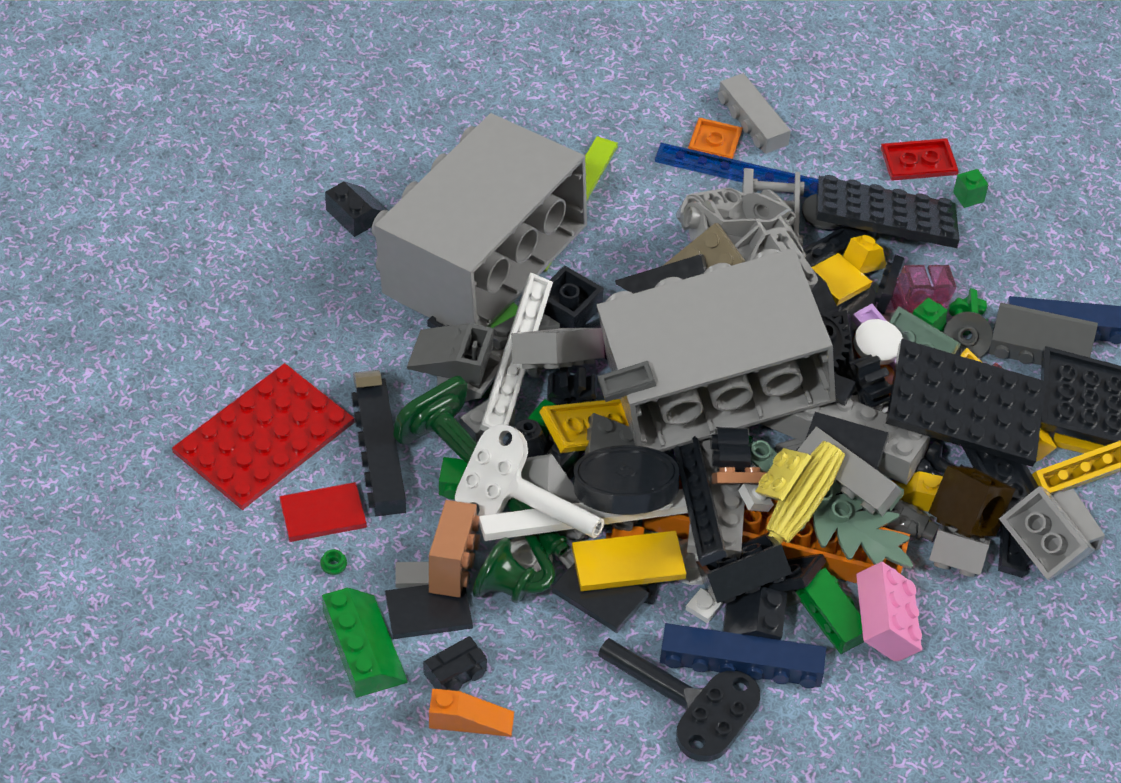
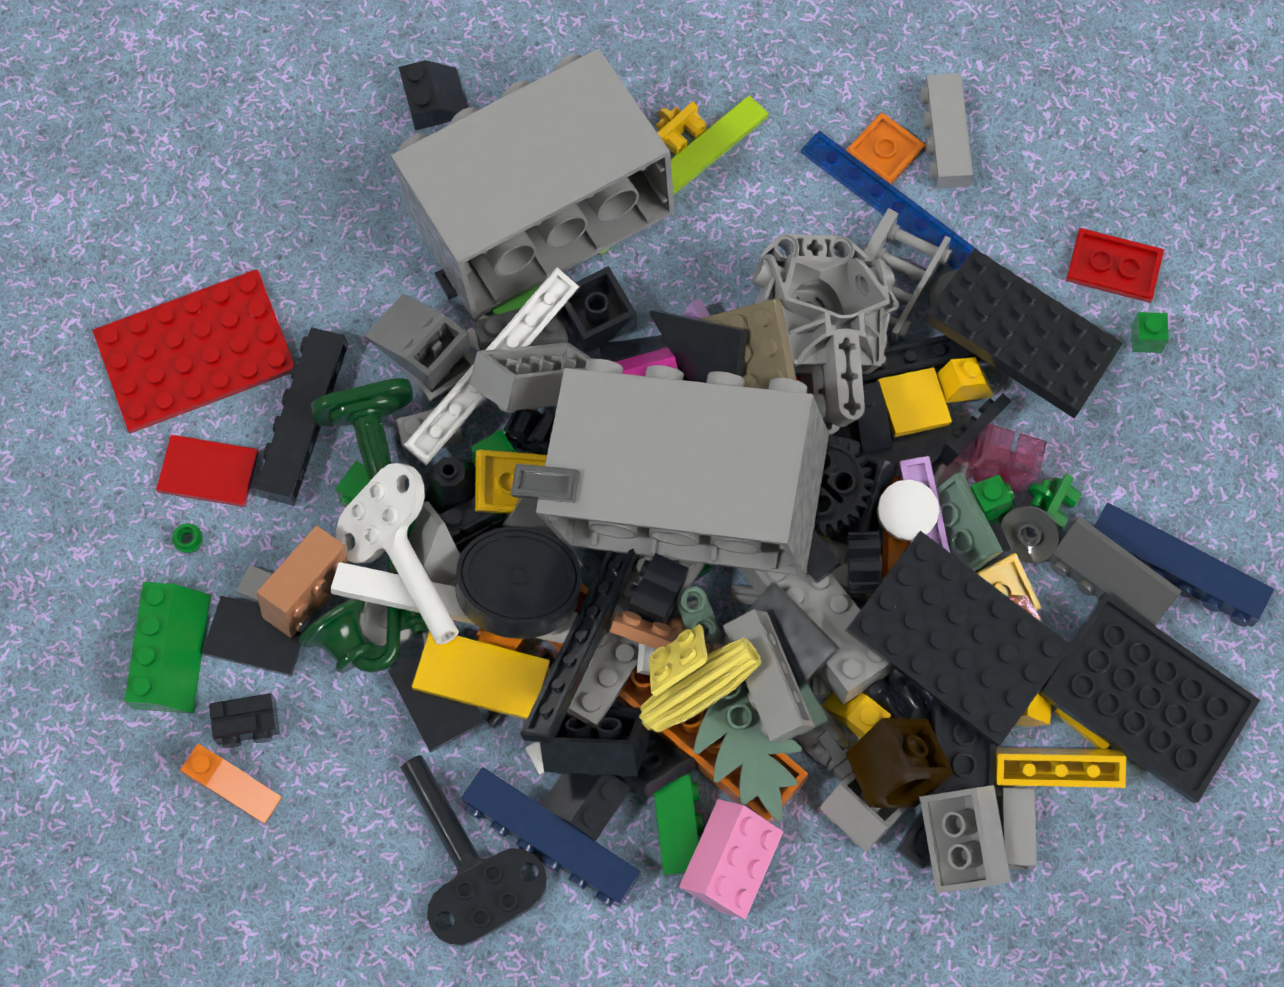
camera: 30 degrees right, 20 degrees up
(367, 378) = (326, 326): dark tan slope -> none

